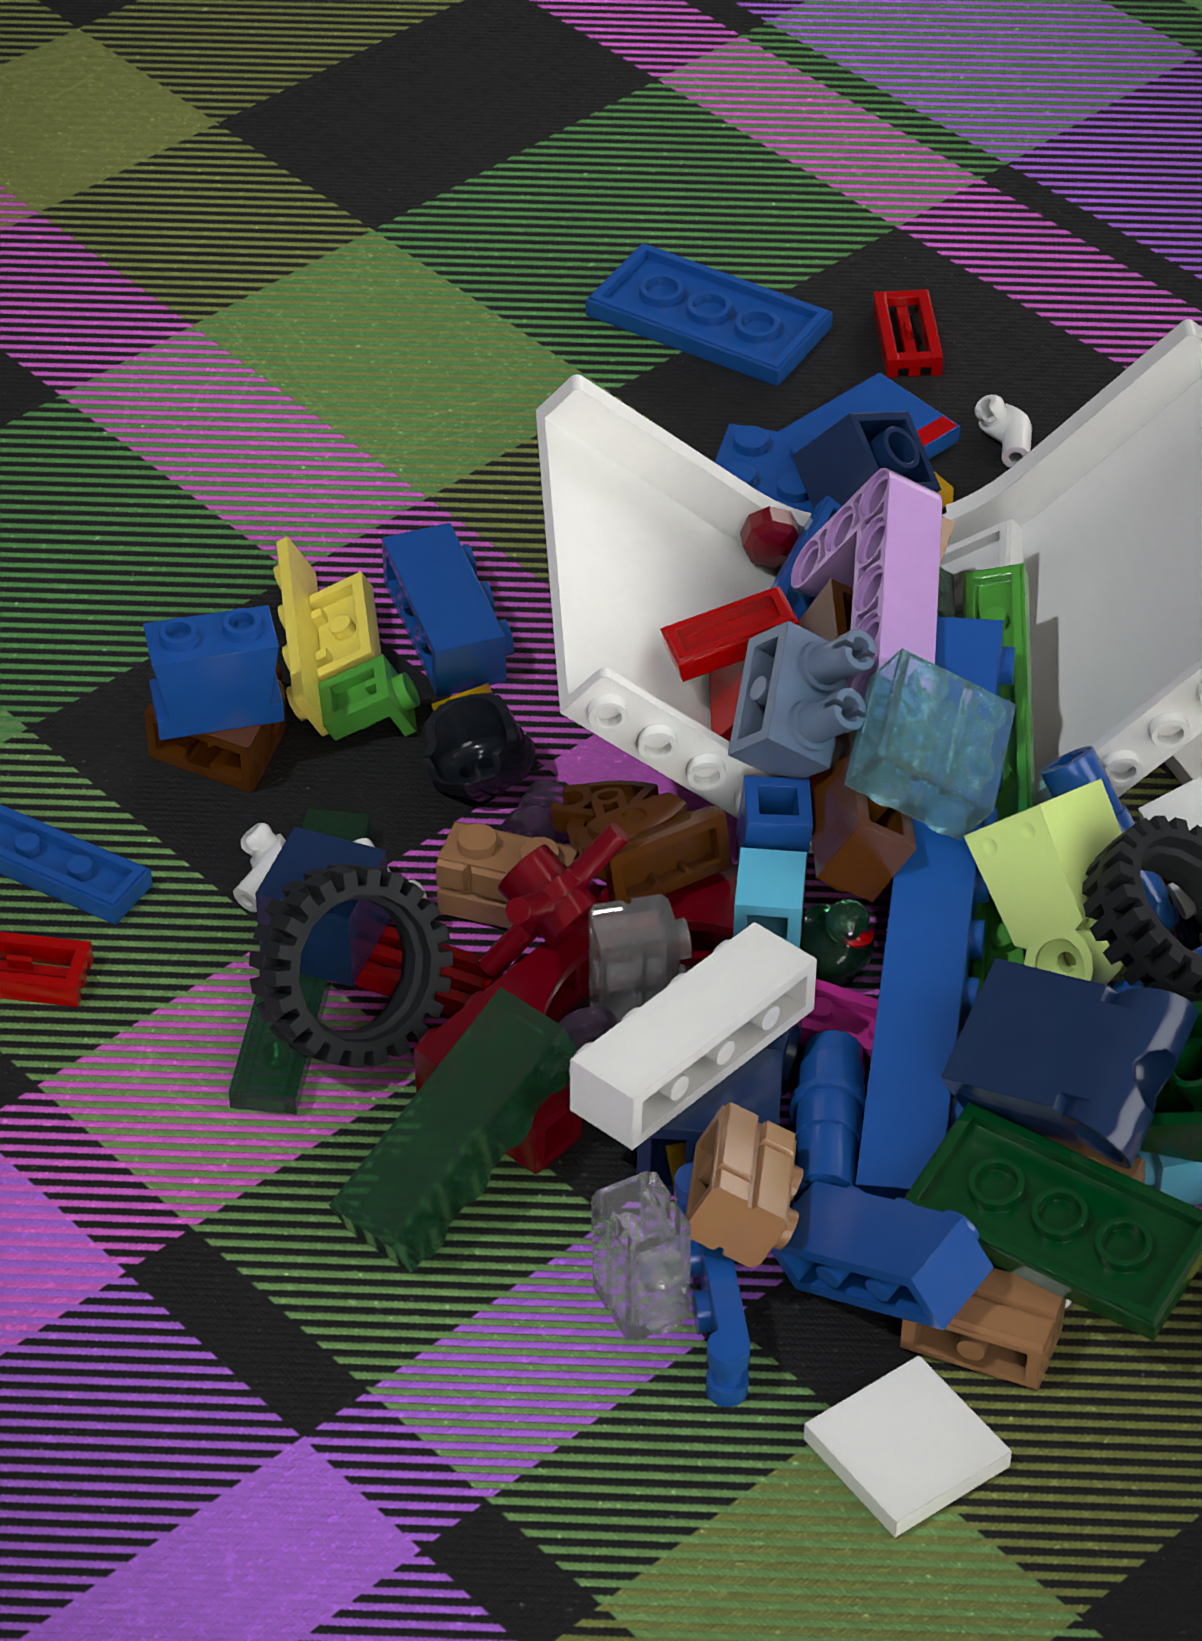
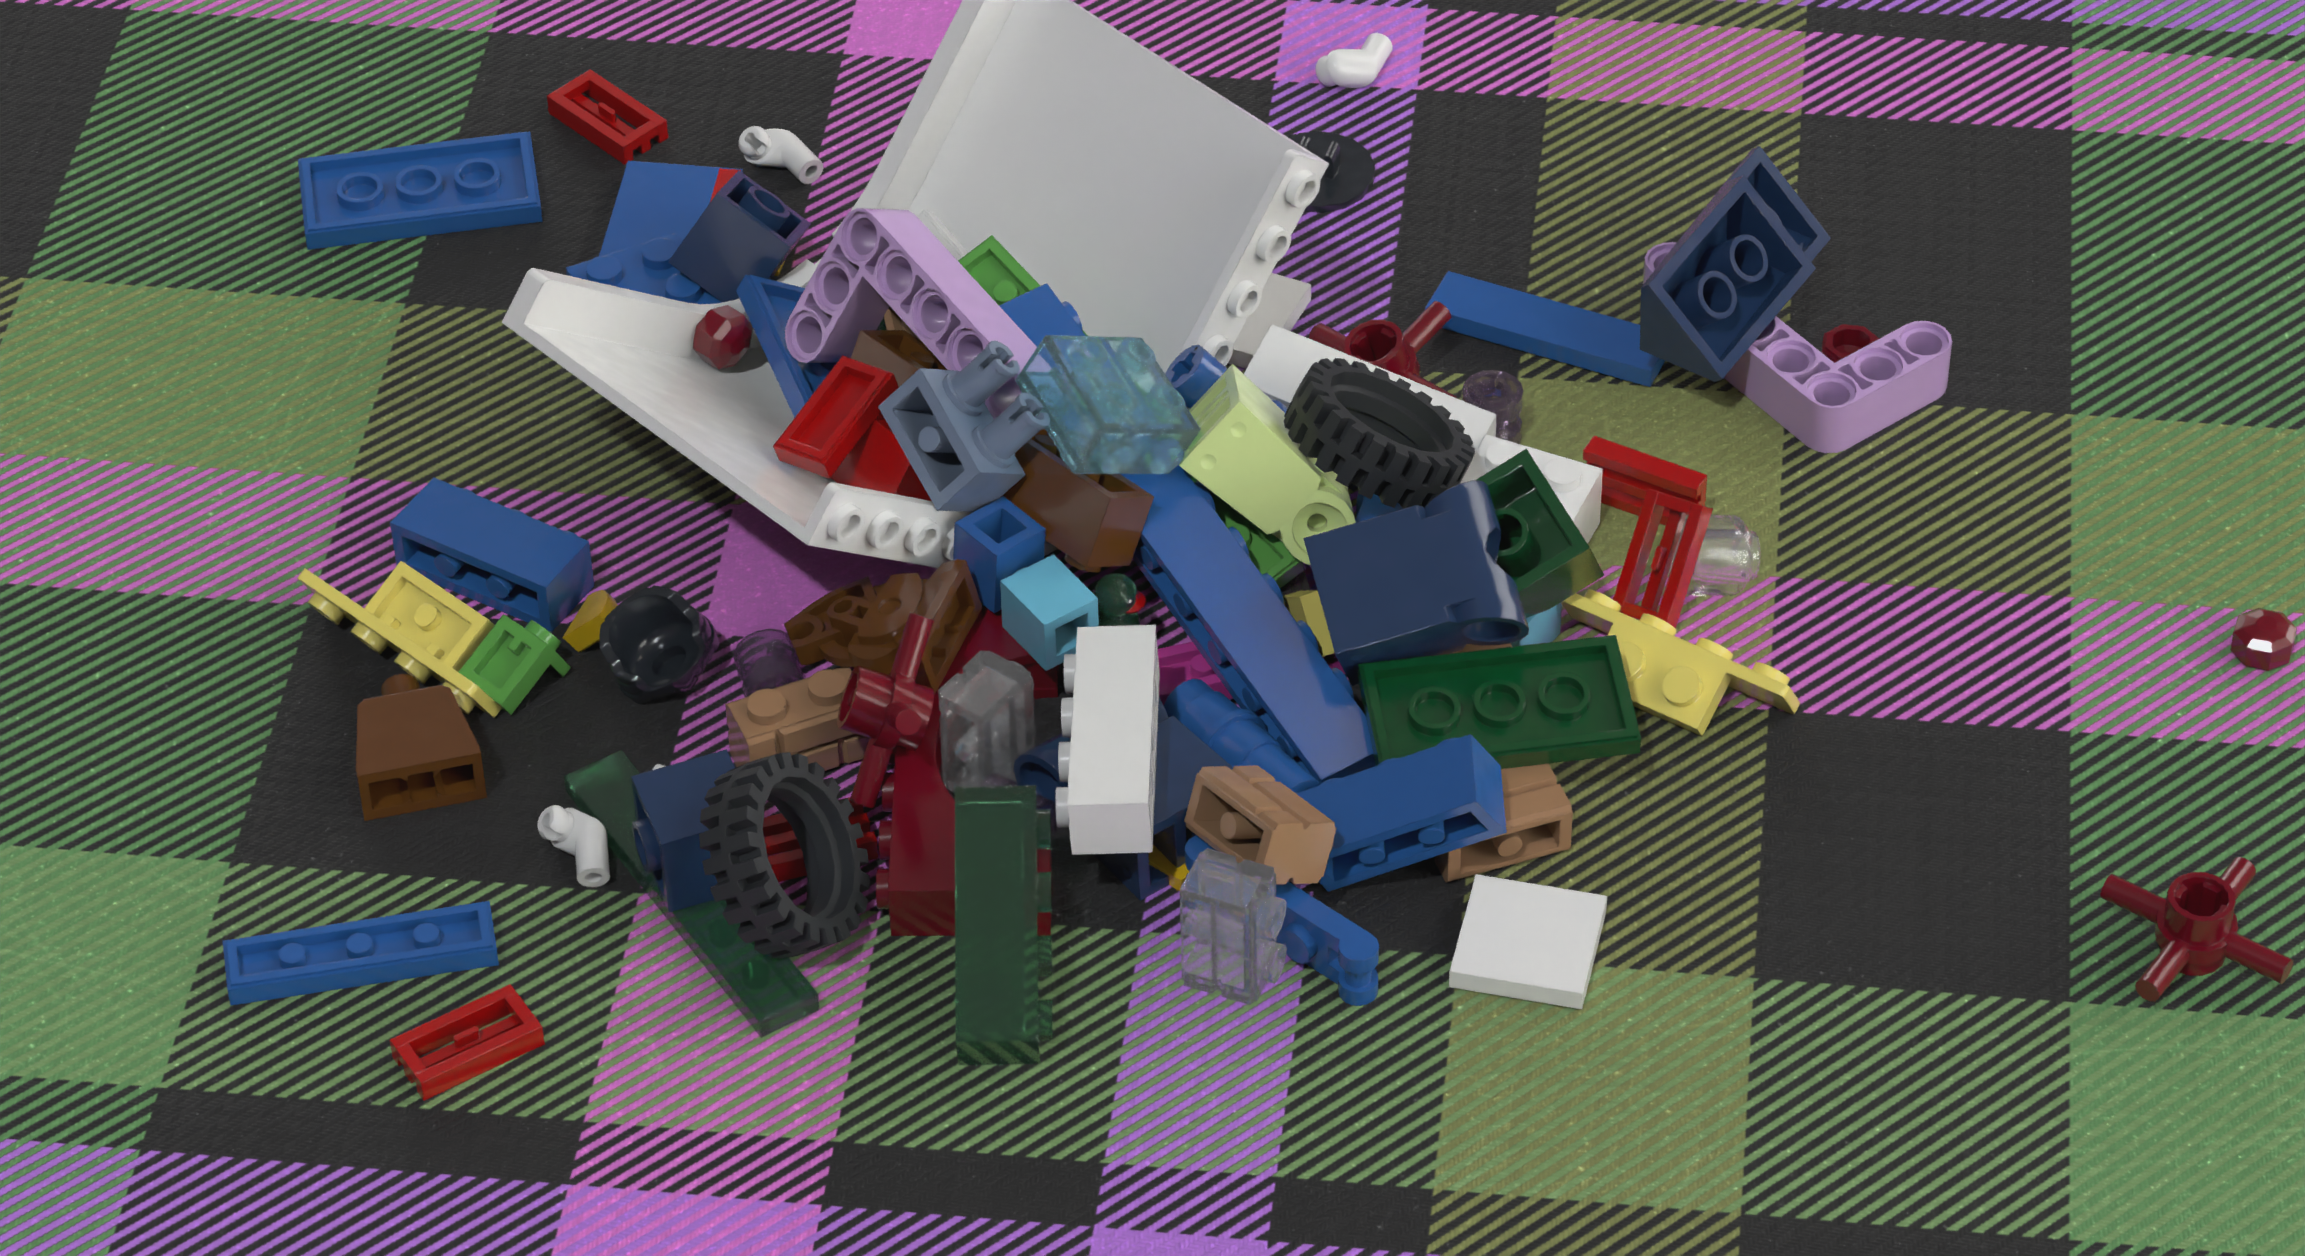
camera: 40 degrees left, 0 degrees up
(214, 672) = (413, 701): blue hips -> none

